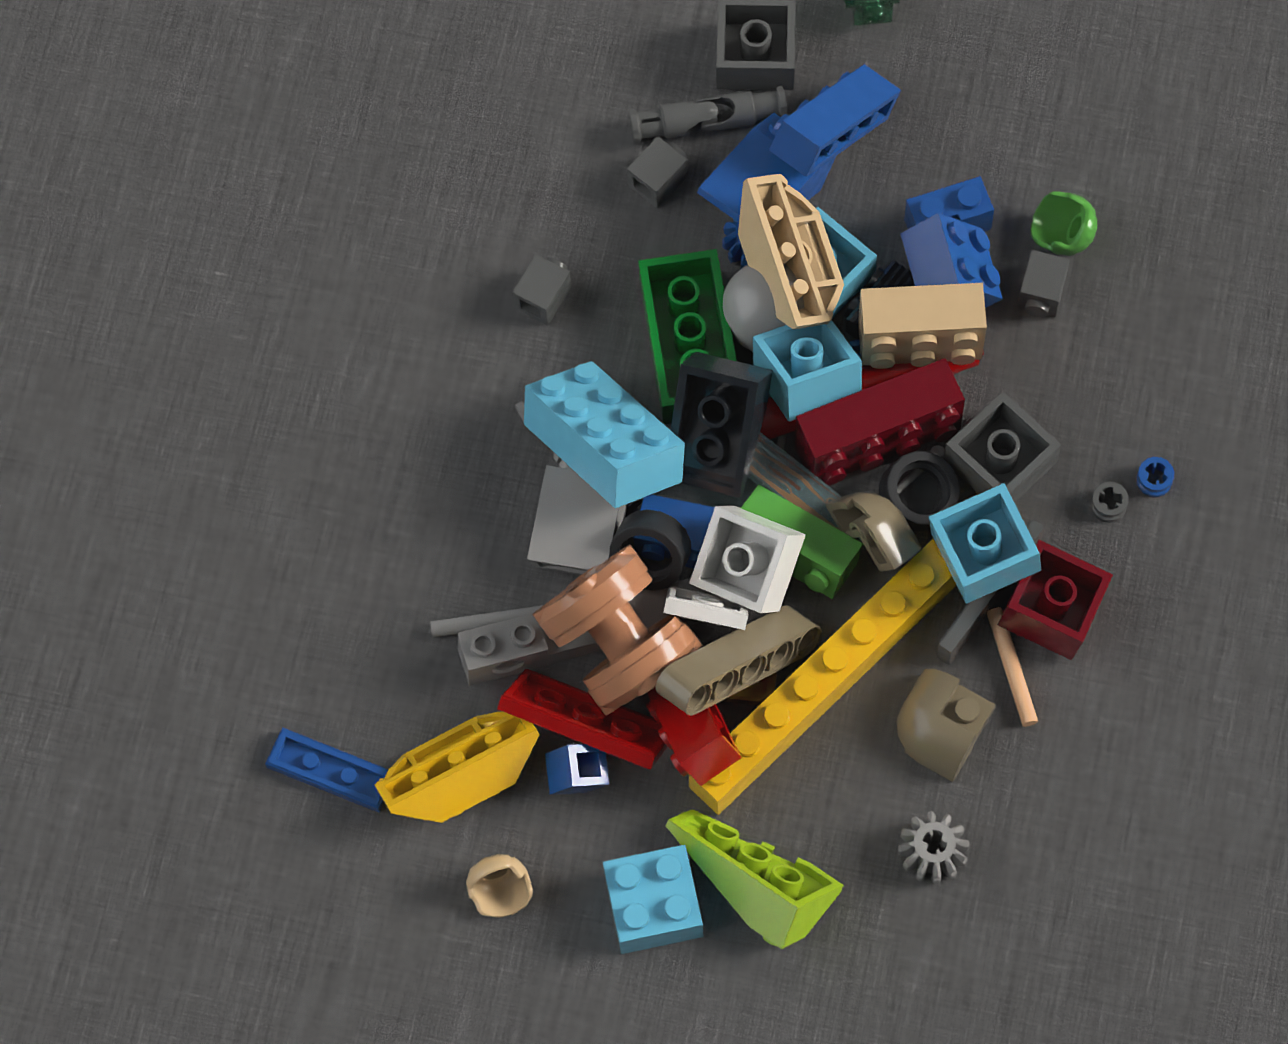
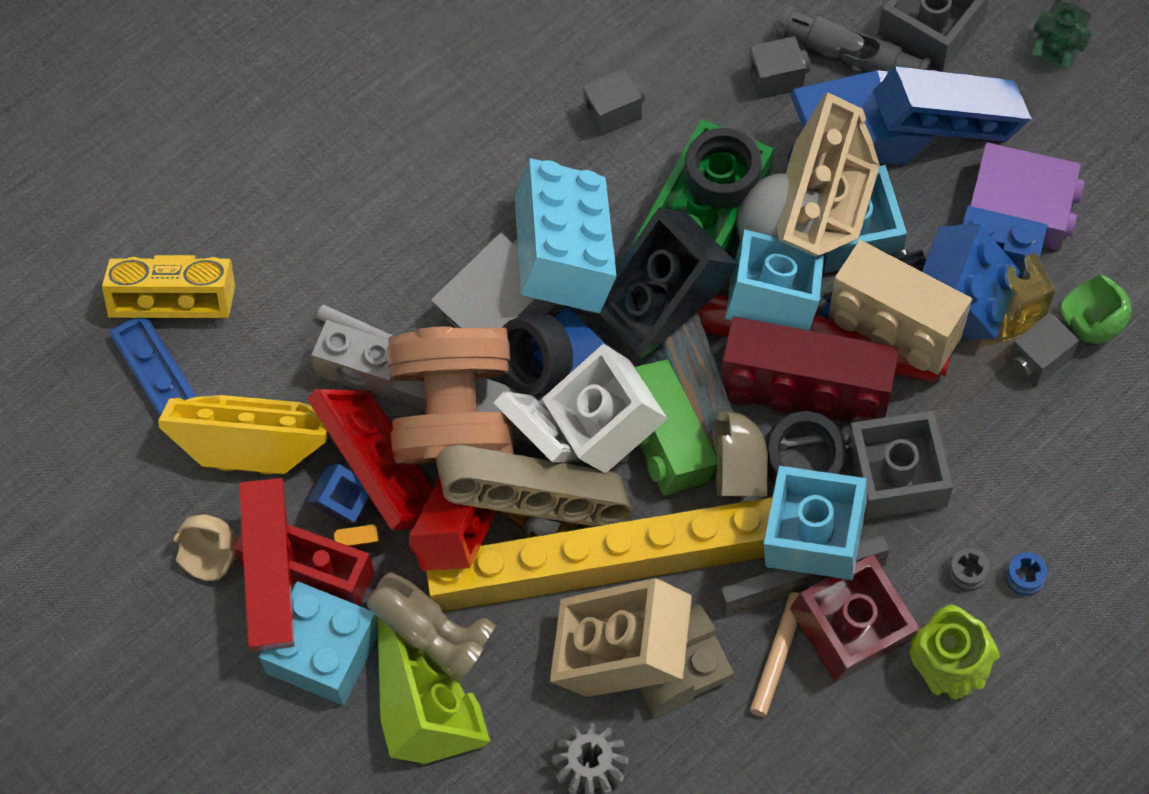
camera: 35 degrees right, 5 degrees down
(291, 691) = (168, 287): none -> yellow piece
(572, 863) = (266, 565): none -> red tile
(589, 841) = (325, 564): none -> red brick
(614, 795) = (358, 535): none -> light orange tile
(693, 265) = (721, 141): none -> black tyre
(733, 830) = (426, 627): none -> dark tan piece
(759, 689) = (540, 526): none -> dark grey hinge
(895, 735) = (621, 638): none -> tan brick
(938, 154) = (1030, 189): none -> medium lavender brick
(1009, 245) = (1029, 299): none -> clear yellow hinge
(1148, 576) = (953, 652): none -> lime hair

